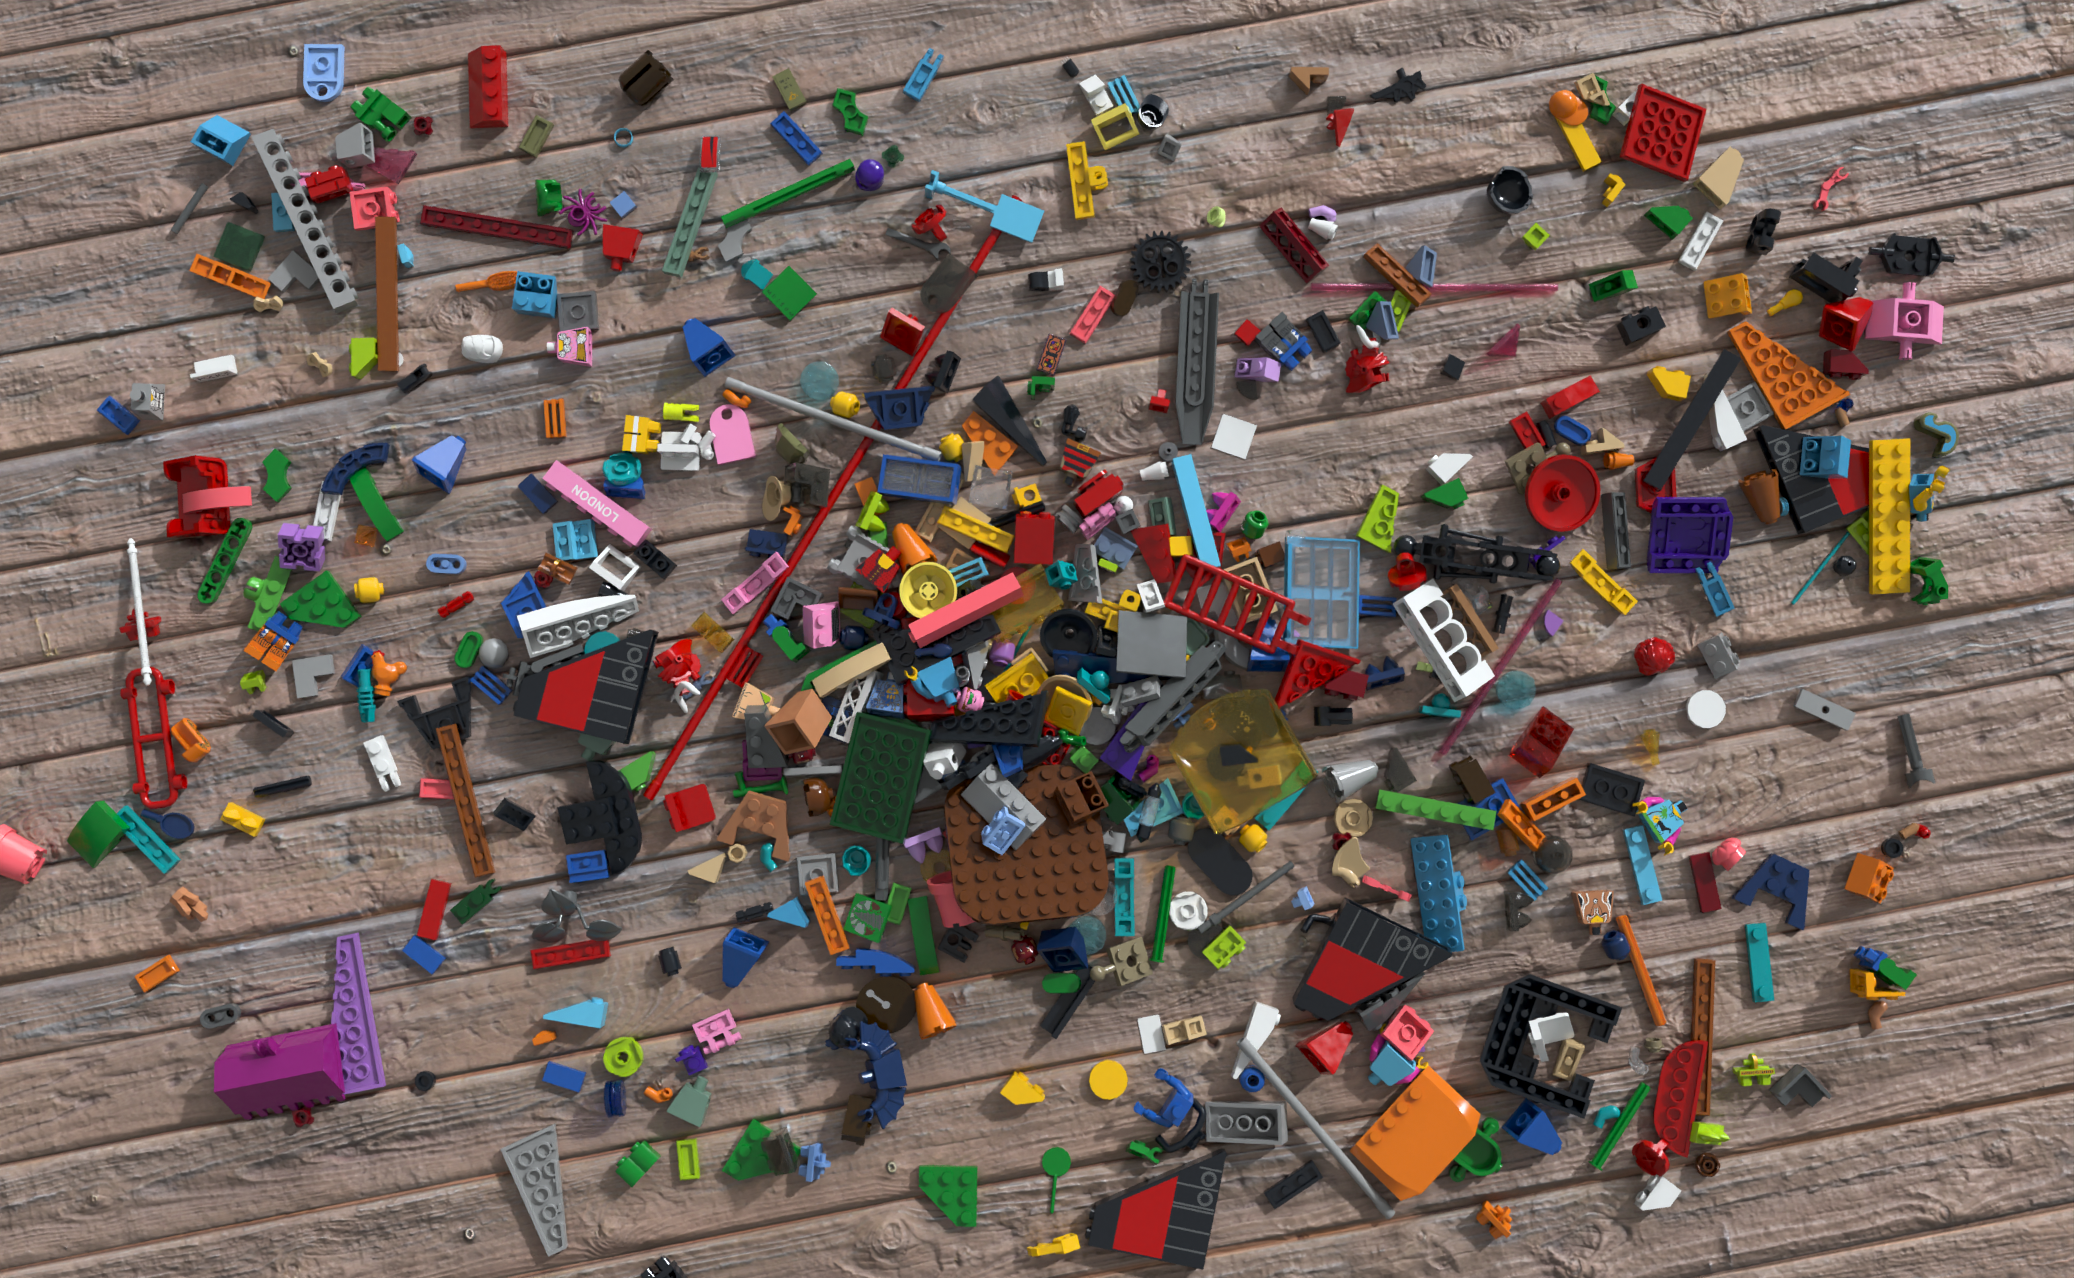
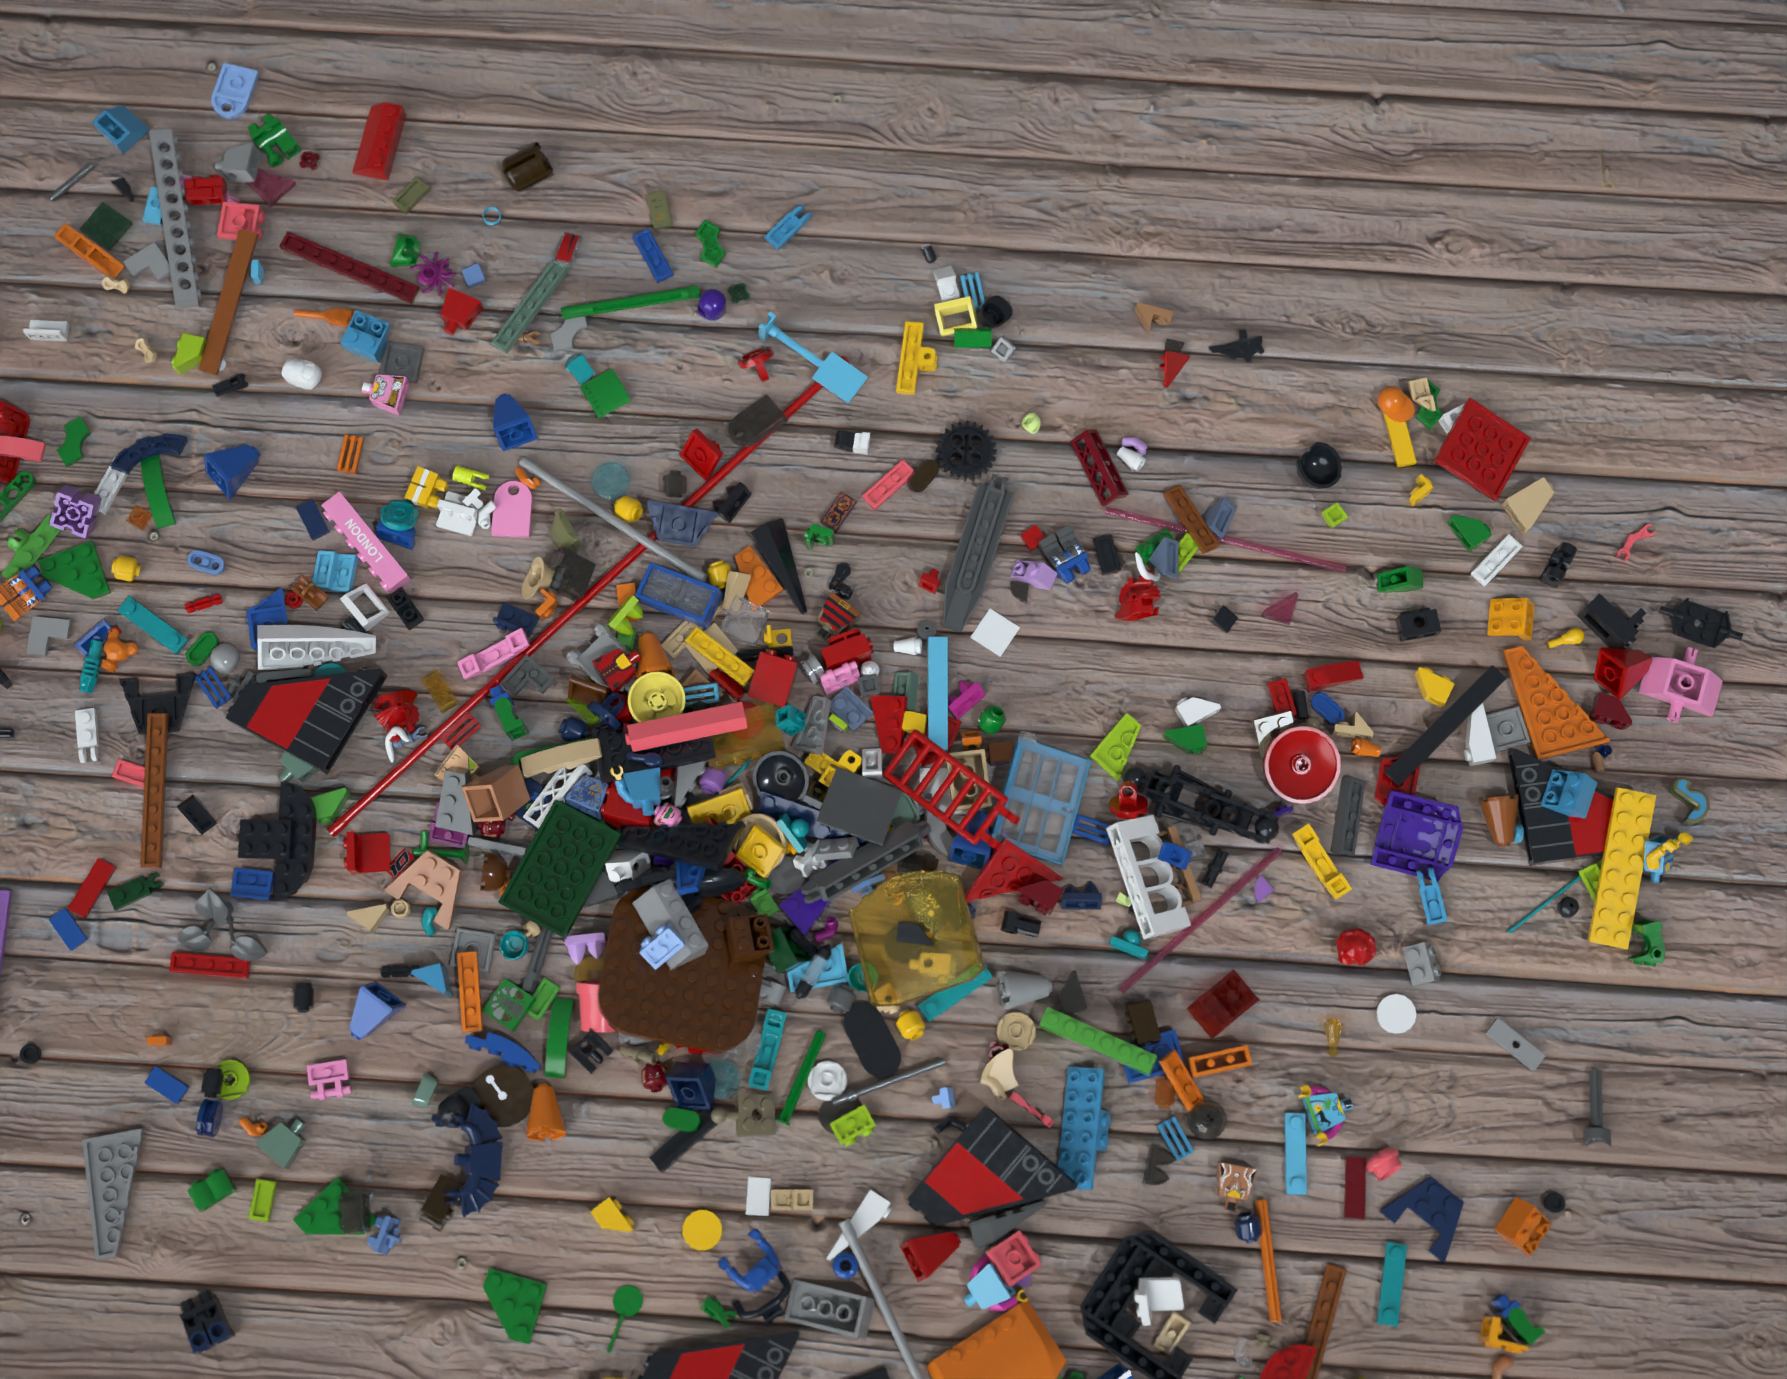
camera: 15 degrees right, 10 degrees down
(413, 639) = (153, 625): none -> teal plate
(586, 1013) = (204, 1025): medium azure slope -> none
(608, 1066) = (212, 1082): none -> black brick
(692, 1059) = (296, 1099): dark purple bracket -> none
(724, 809) = (401, 861): none -> sticker
(812, 1020) = (425, 1091): none -> sand green piece
(821, 624) = (546, 707): bright pink slope -> none
(868, 841) = (531, 929): none -> tan piece
(932, 248) = (753, 386): dark grey piece -> none
(1136, 144) = (972, 337): none -> green tile
(1465, 613) = (1175, 855): none -> blue bracket
(1515, 689) = (1210, 946): clear light blue tile -> none
(1611, 789) = (1281, 1069): black tile -> none
(1915, 829) = (1581, 1189): arm -> none

